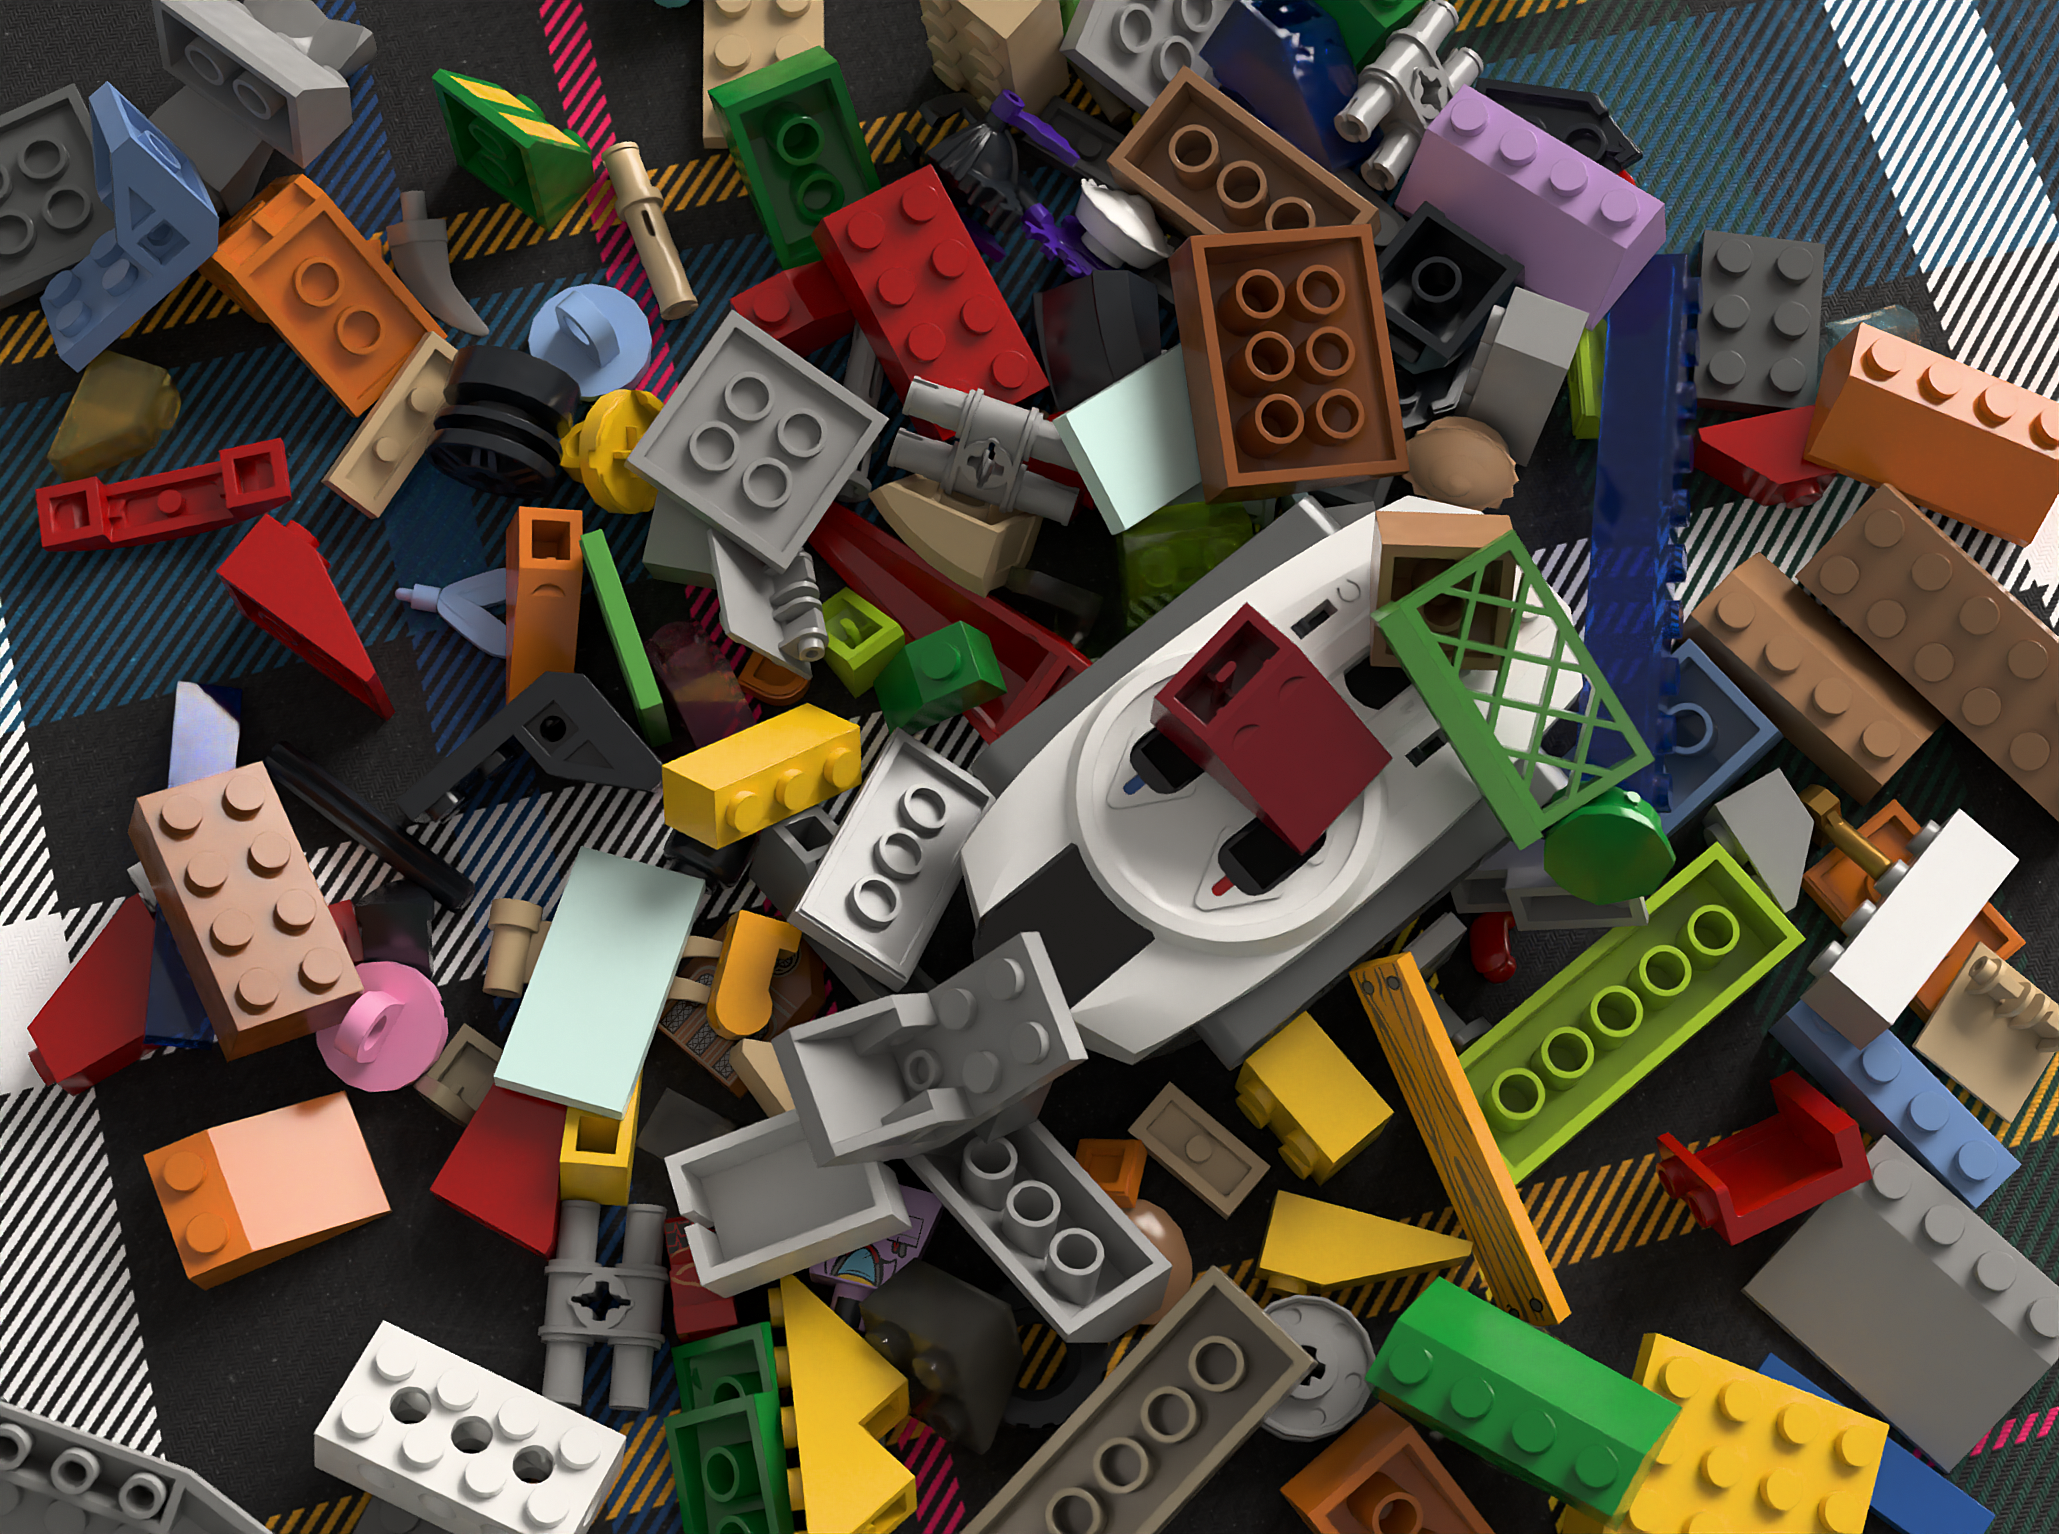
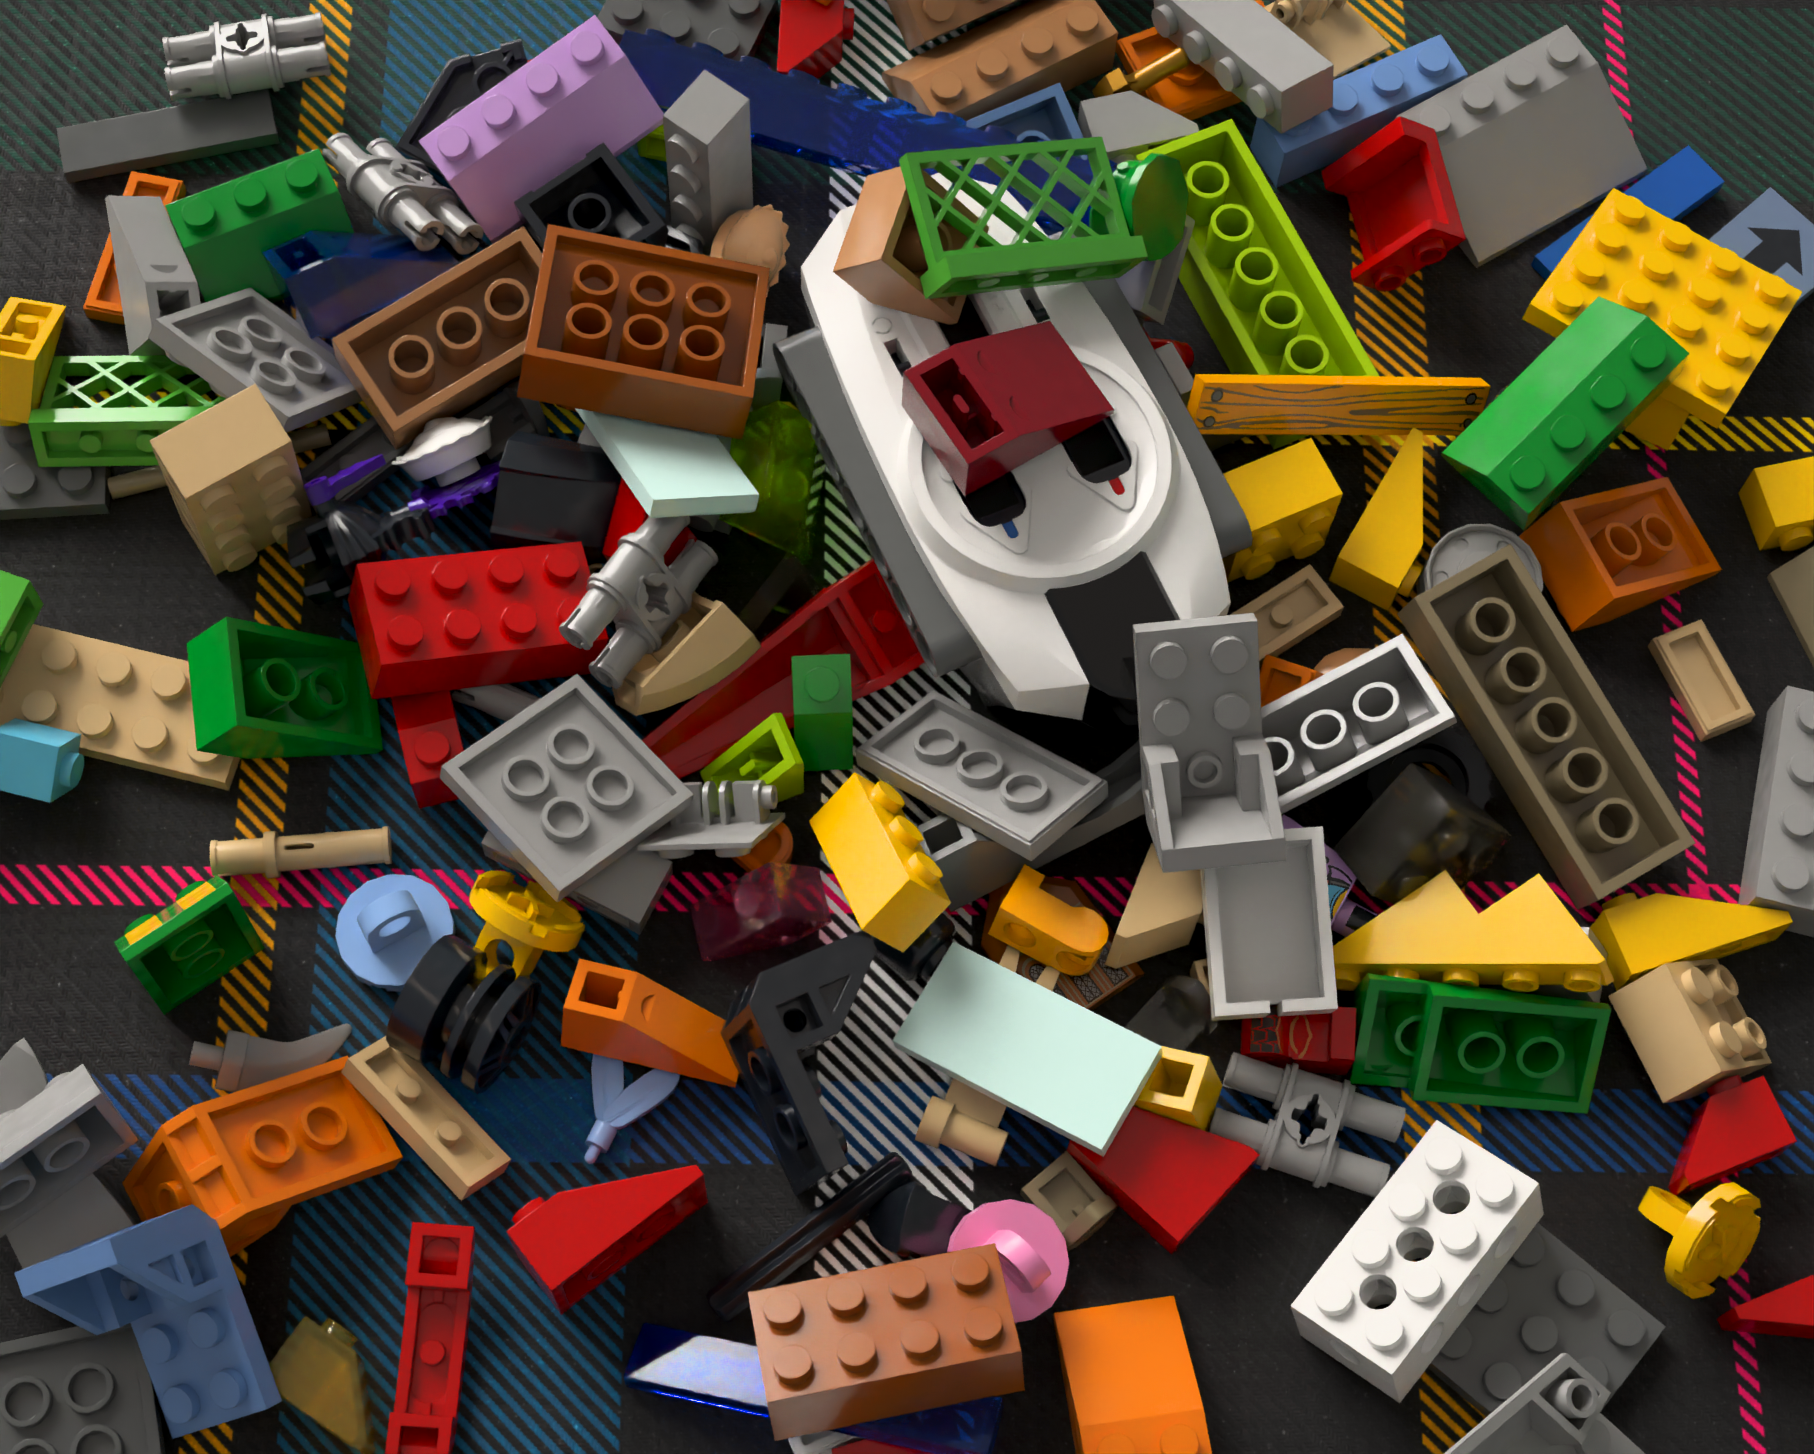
camera: 75 degrees left, 5 degrees down
(625, 638) = (708, 952): bright green tile -> none

